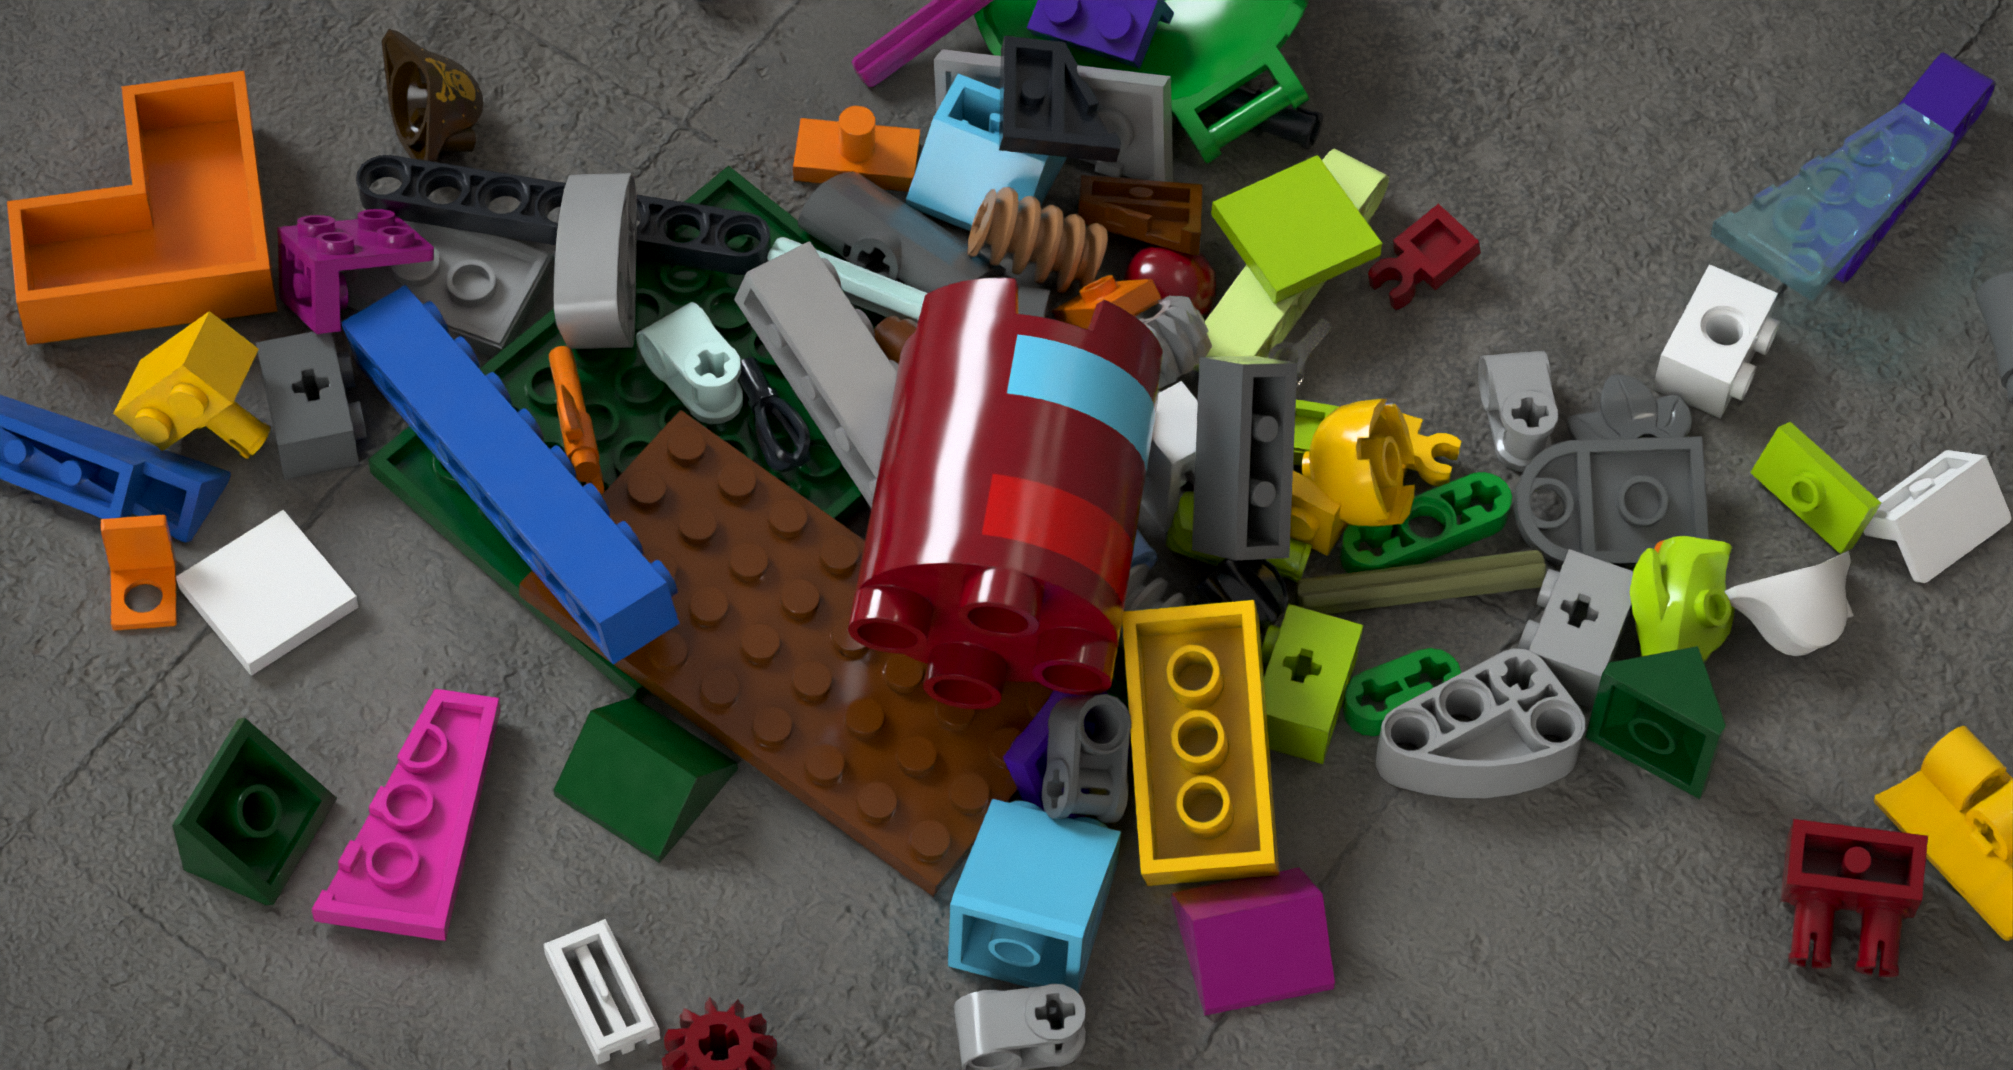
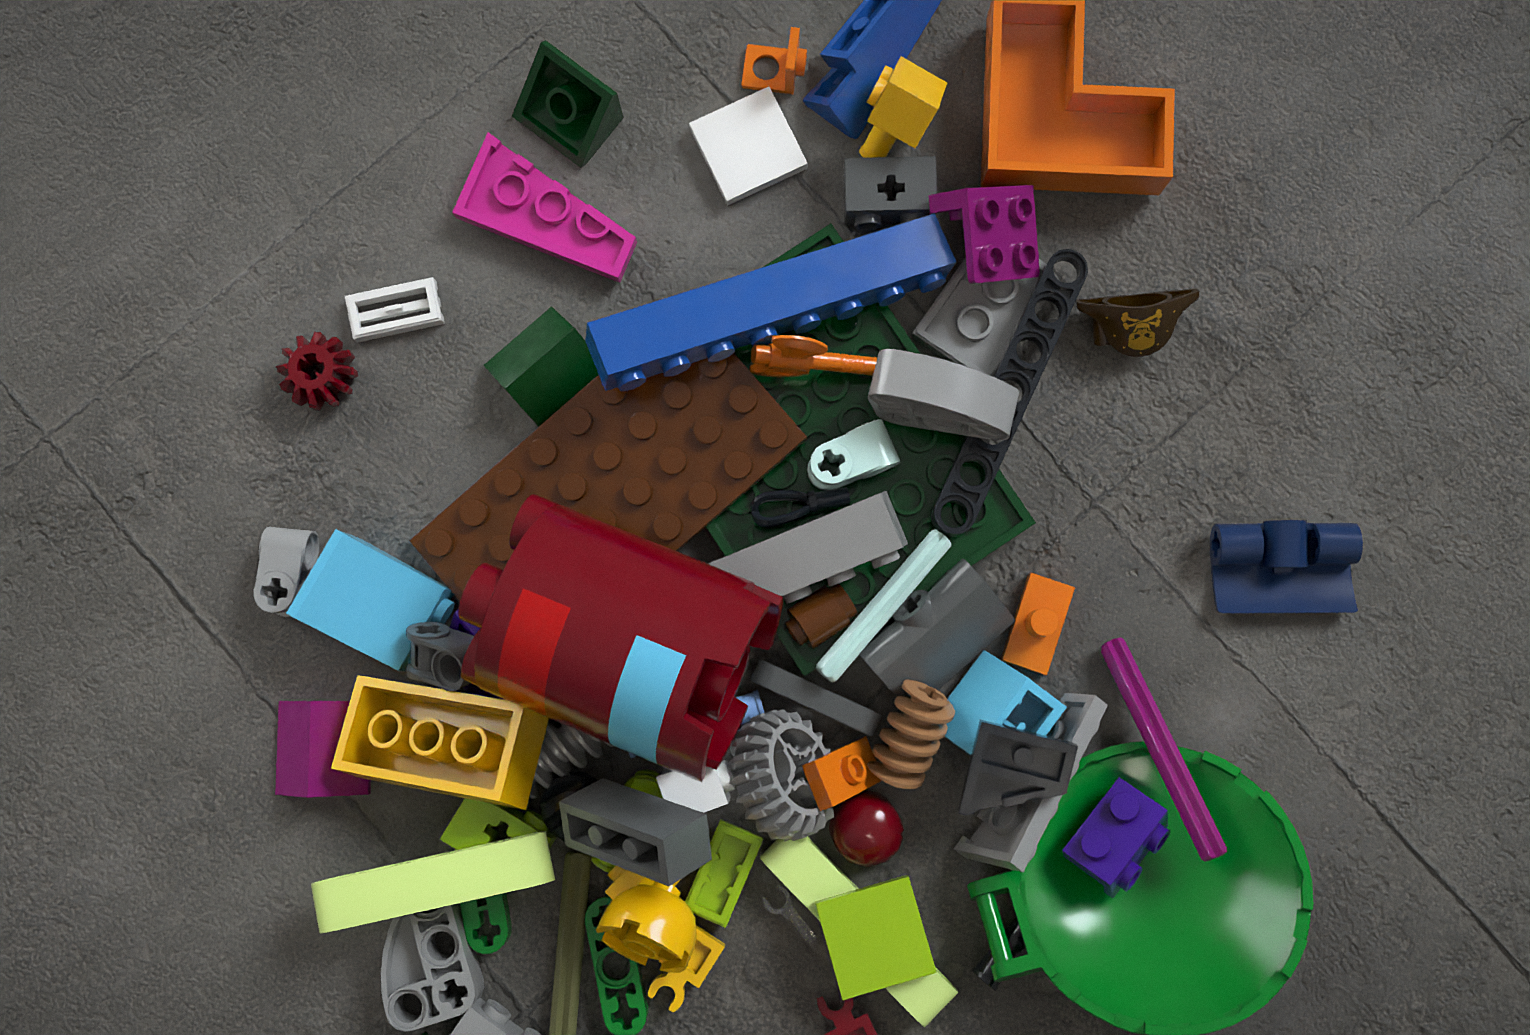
camera: 110 degrees right, 25 degrees up
(1145, 210) = (927, 830): reddish brown wing -> none
(1384, 709) = (432, 882): none -> yellowish green beam

